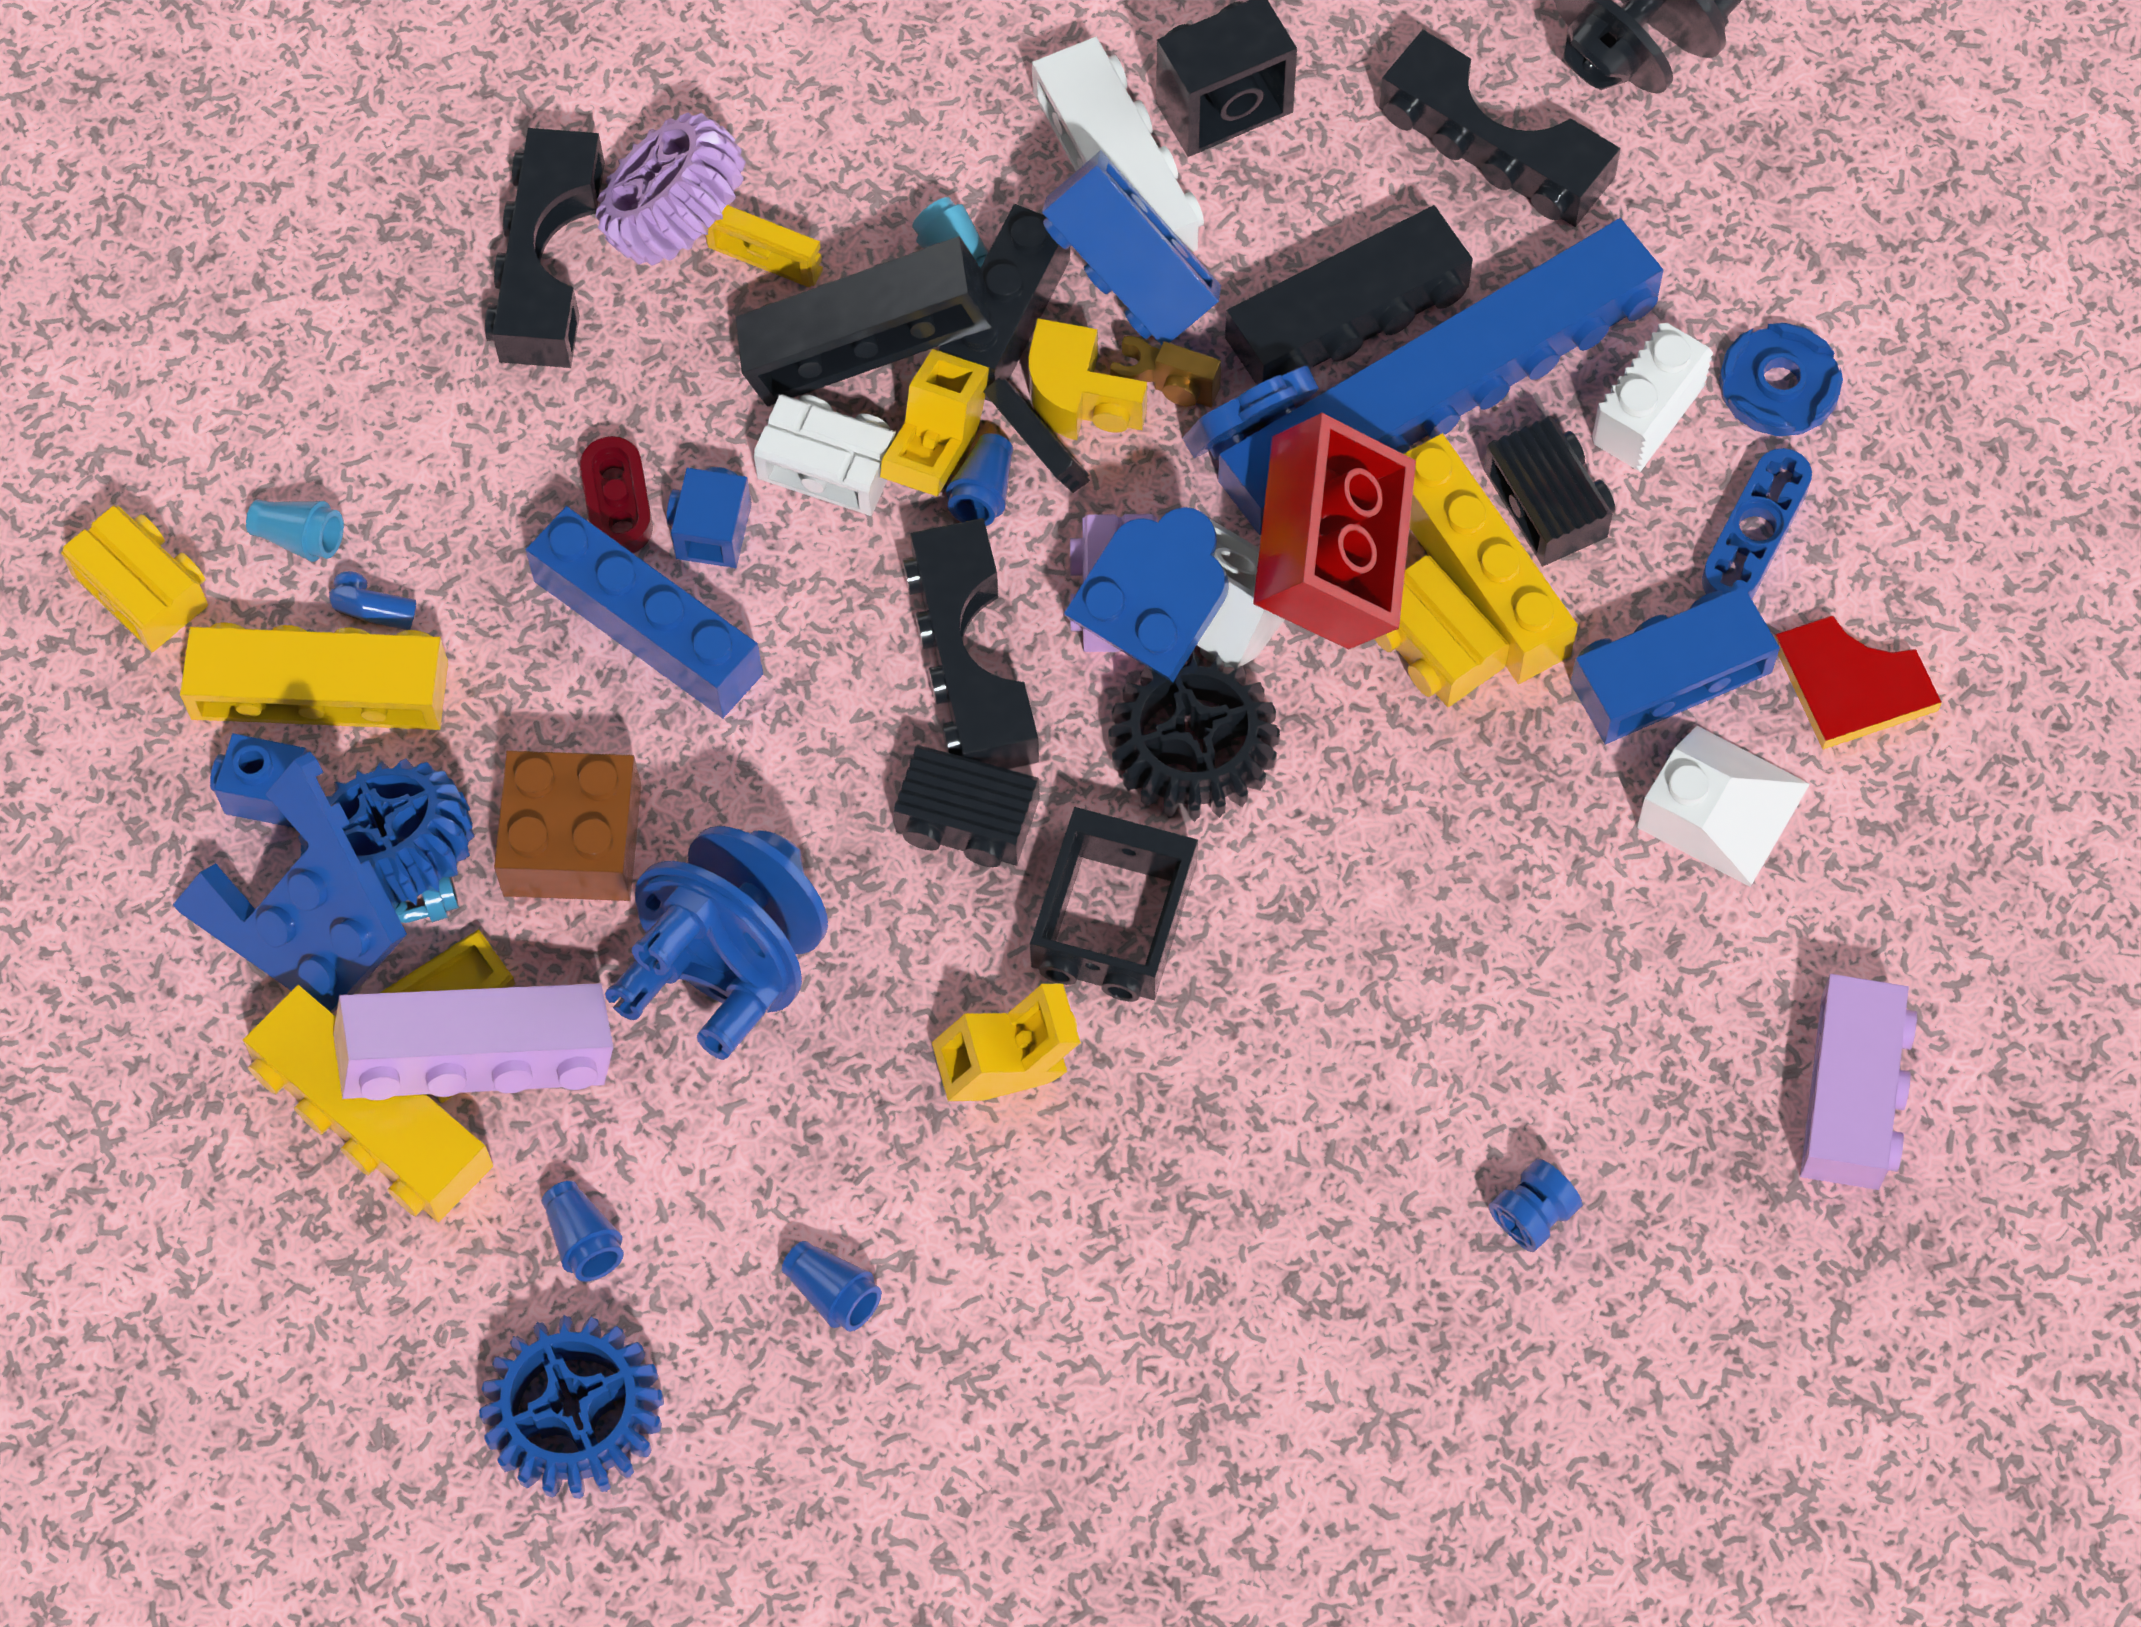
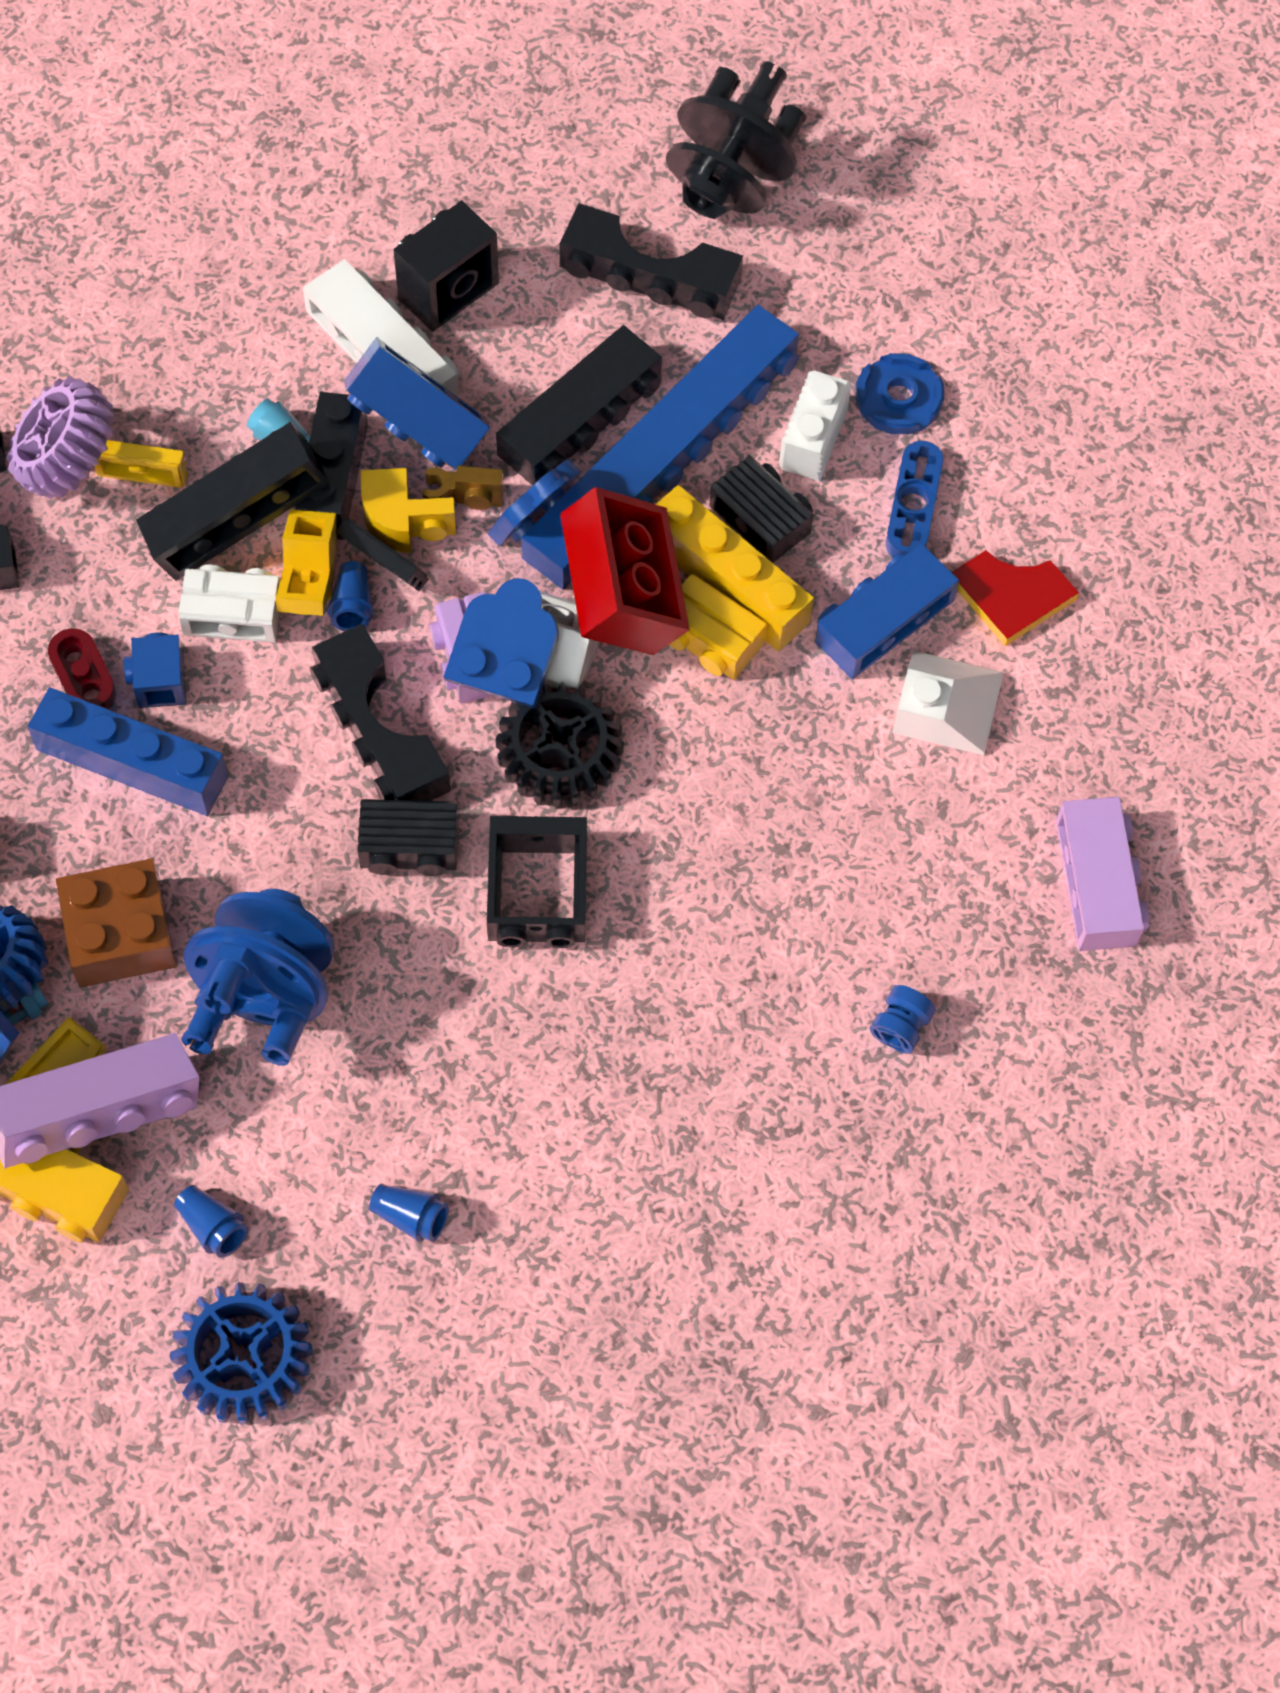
camera: 20 degrees left, 0 degrees up
(1008, 1051) = (492, 1005): yellow brick -> none

